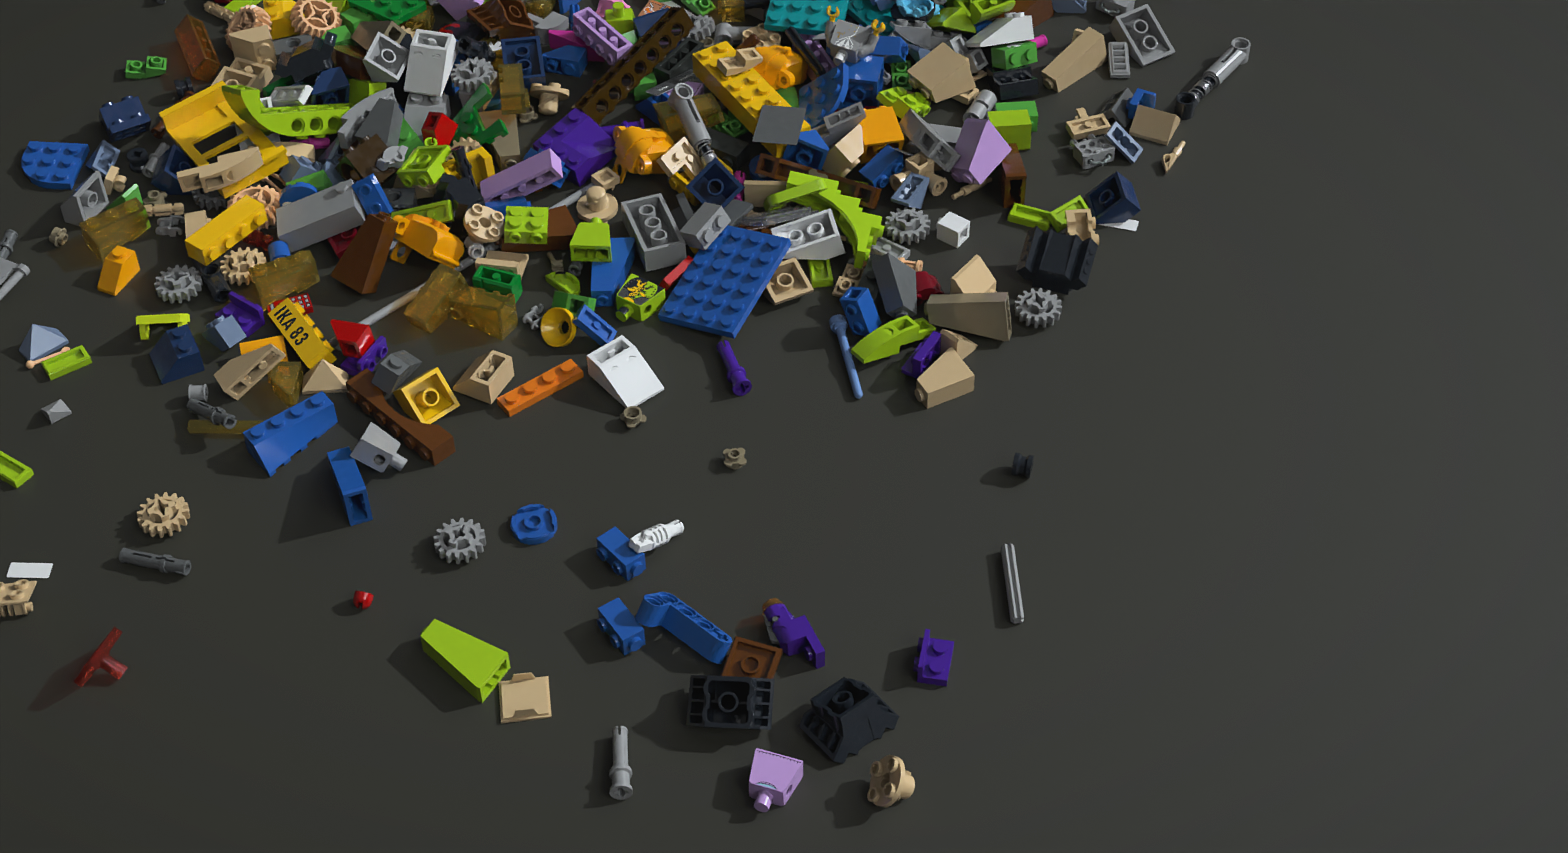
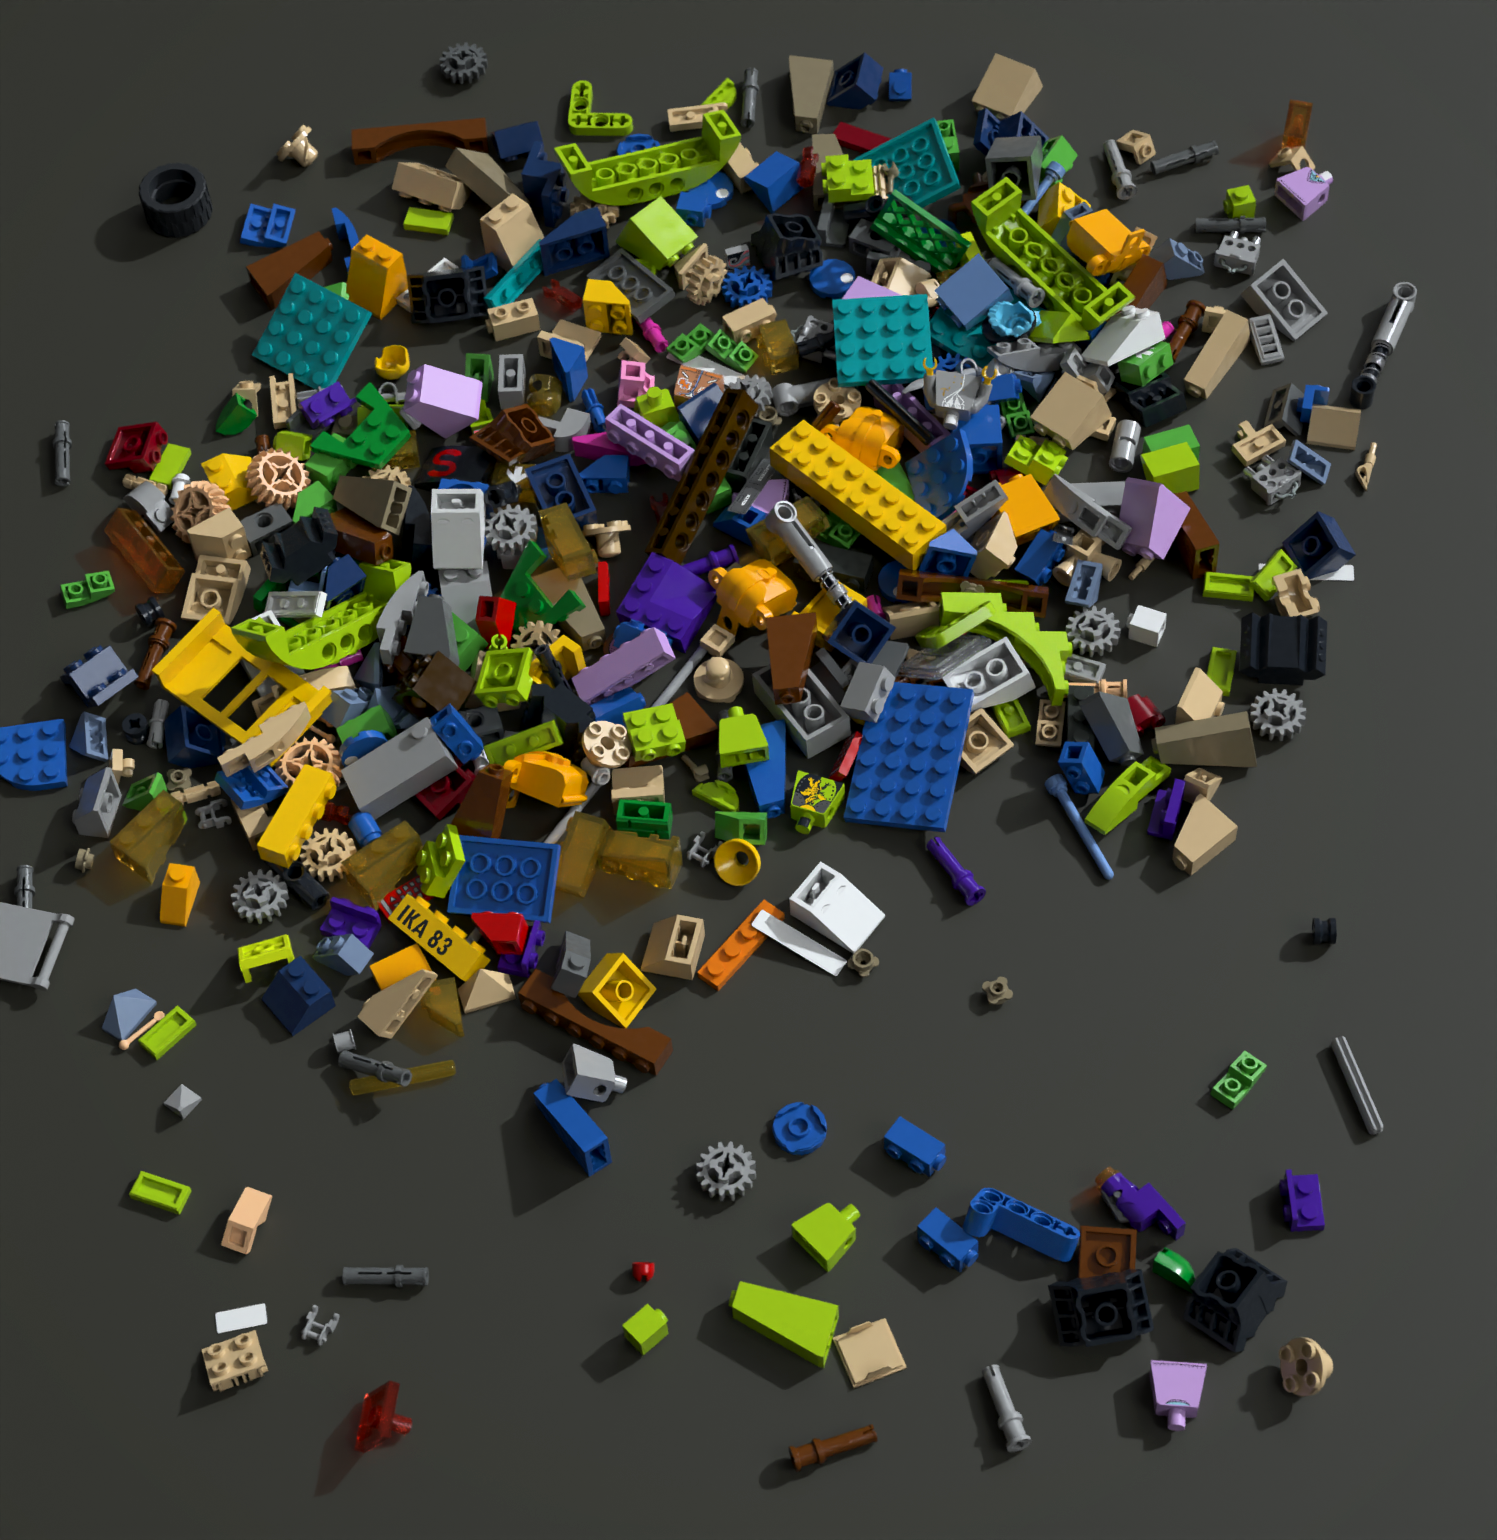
camera: 10 degrees left, 10 degrees up
(56, 502) = (243, 1222): none -> light nougat slope
(90, 590) = (329, 1327): none -> light grey piece
(152, 518) = (378, 1204): tan gear -> none
(202, 205) = (251, 788): none -> blue slope
(214, 20) = (150, 502): none -> light grey brick
(289, 431) = (475, 1072): blue wedge -> none
(322, 283) = (440, 862): none -> lime plate
(344, 639) = (646, 1328): none -> lime brick
(370, 300) = (506, 878): none -> blue plate
(385, 59) = (405, 535): light grey slope -> none
(392, 157) = (465, 675): light grey piece -> none
(450, 761) = (819, 1450): none -> reddish brown pin
(523, 601) = (826, 1233): none -> lime torso
(532, 131) = (603, 588): none -> red tile
(586, 393) = (799, 943): none -> white sticker
(594, 326) = (779, 852): blue plate -> none
(654, 191) = (790, 651): none -> reddish brown slope
(655, 536) = (948, 1118): white hinge -> none
(683, 156) = (805, 595): tan plate -> none
(742, 61) = (835, 452): tan slope -> none
(779, 125) = (911, 533): dark grey sticker -> none
(803, 685) = (1174, 1269): none -> green brick
(914, 560) = (1239, 1080): none -> bright green slope
(1004, 271) = (1221, 668): none -> lime tile
(1059, 40) = (1186, 324): none -> reddish brown pin

